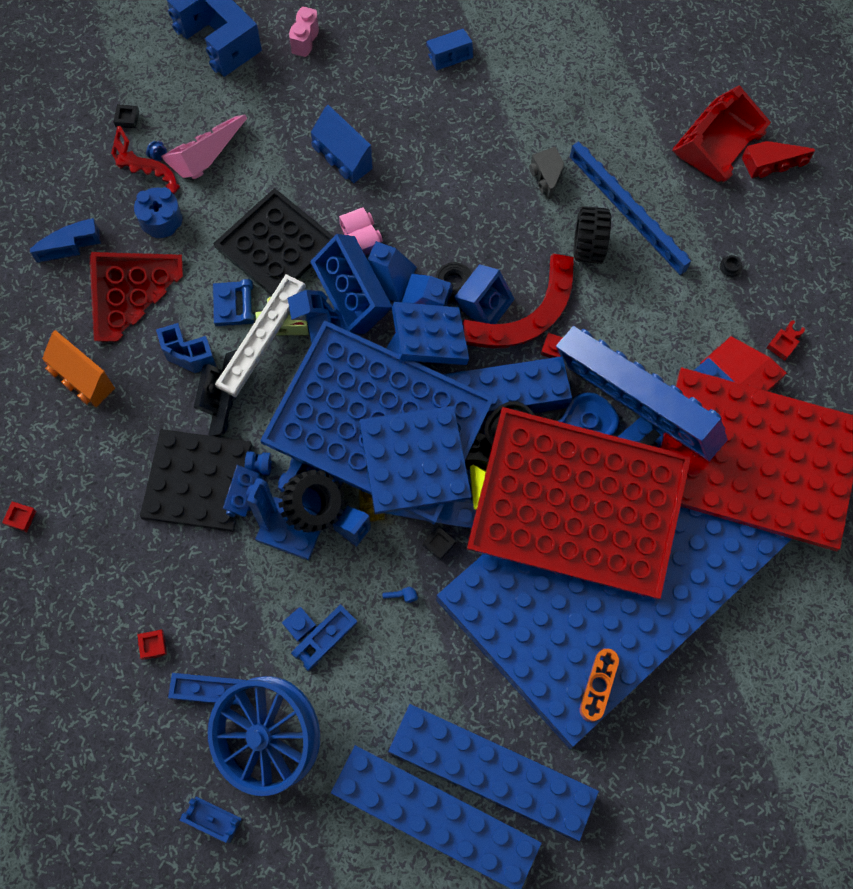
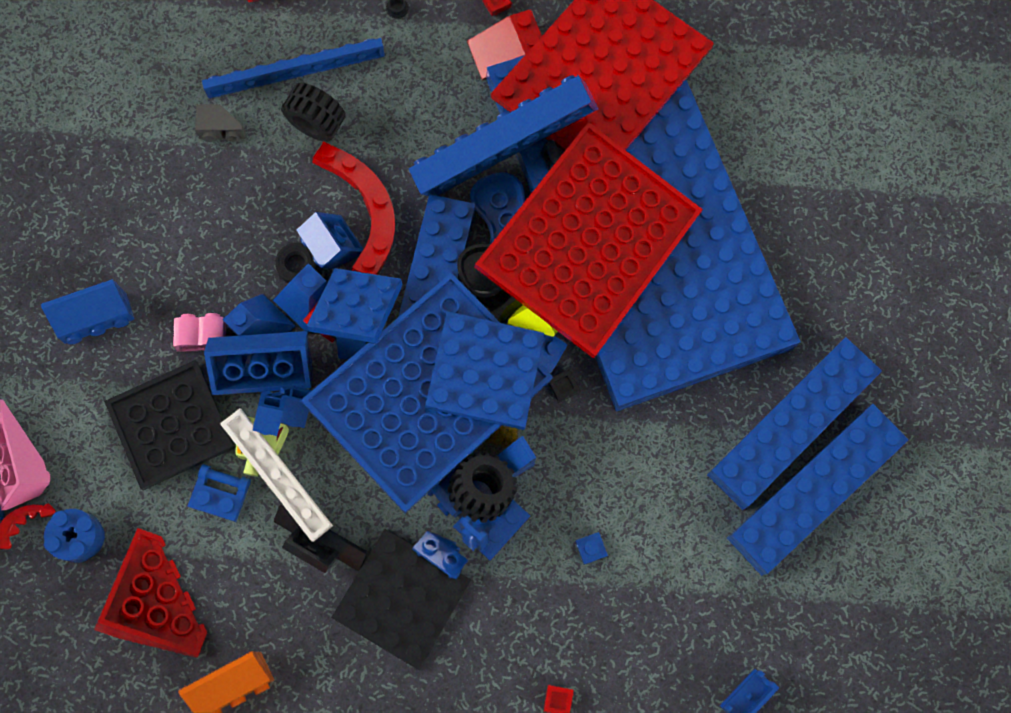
camera: 70 degrees left, 5 degrees up
(66, 241) = (60, 649): blue slope -> none
(188, 354) = (265, 556): blue brick -> none
(200, 688) = (623, 659): blue plate -> none
(259, 462) = (412, 528): blue wheel -> none
(263, 735) = (695, 616): blue wheel -> none
(325, 637) = (614, 527): blue plate -> none
(408, 593) = (601, 433): blue hand -> none
(450, 49) = (23, 158): blue hinge -> none
(549, 348) = (409, 199): red plate -> none
(587, 701) = (758, 305): orange beam -> none

